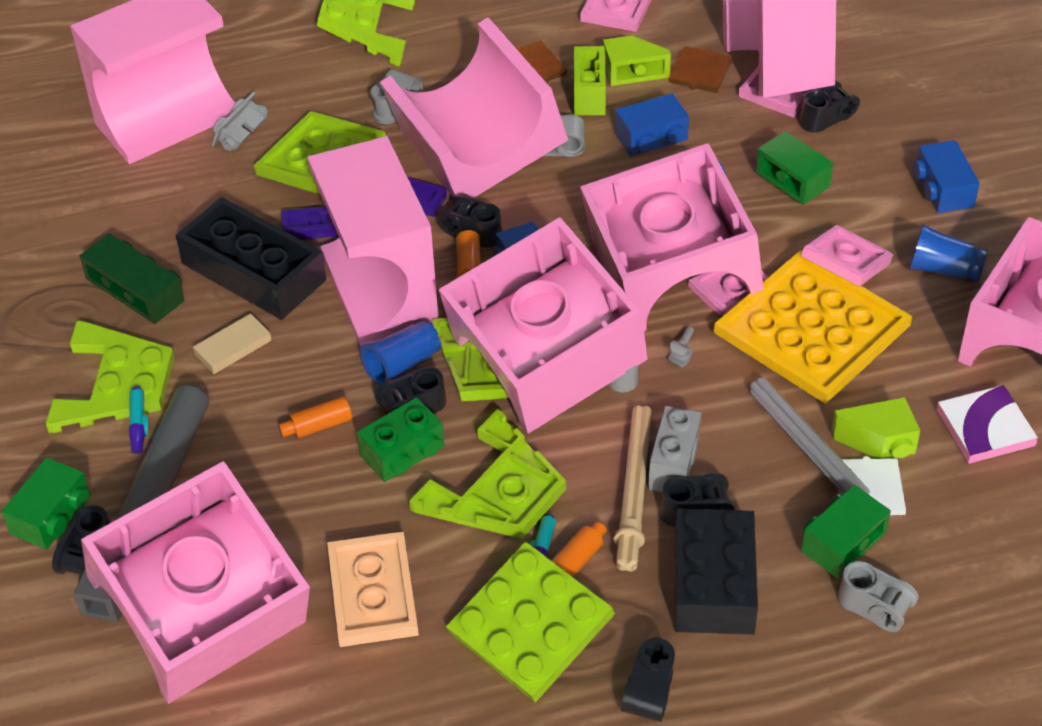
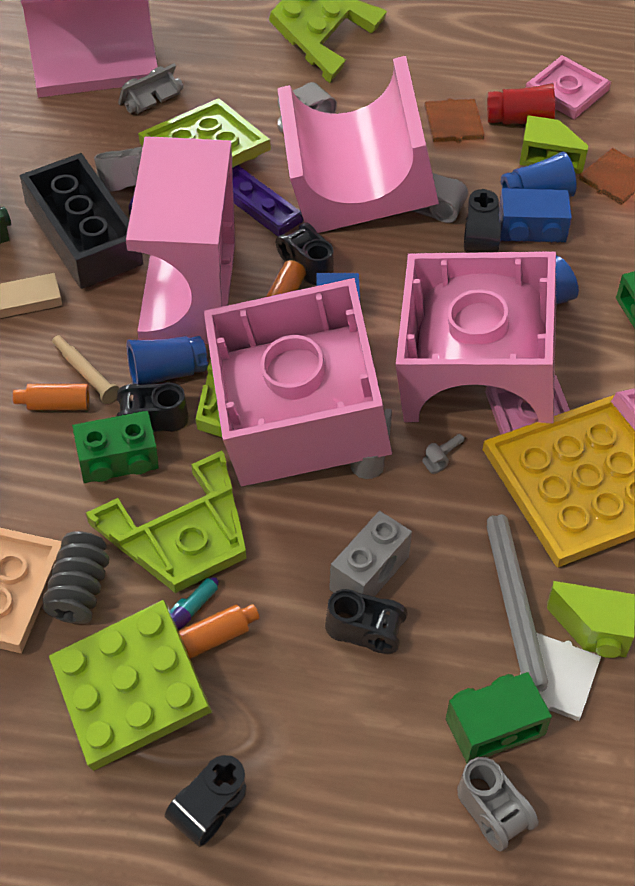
camera: 20 degrees right, 5 degrees up
(266, 196) = (118, 168): none -> light grey piece
(330, 386) = (107, 391): none -> tan piece
(434, 555) = (76, 578): none -> dark grey piece
(589, 31) = (515, 105): none -> red plant
(589, 80) = (493, 151): lime brick -> none
(612, 145) = (482, 222): none -> black piece
(630, 536) = (279, 631): tan axle -> none
(648, 84) = (549, 174): none -> blue plant
(715, 571) = (339, 706): black brick -> none

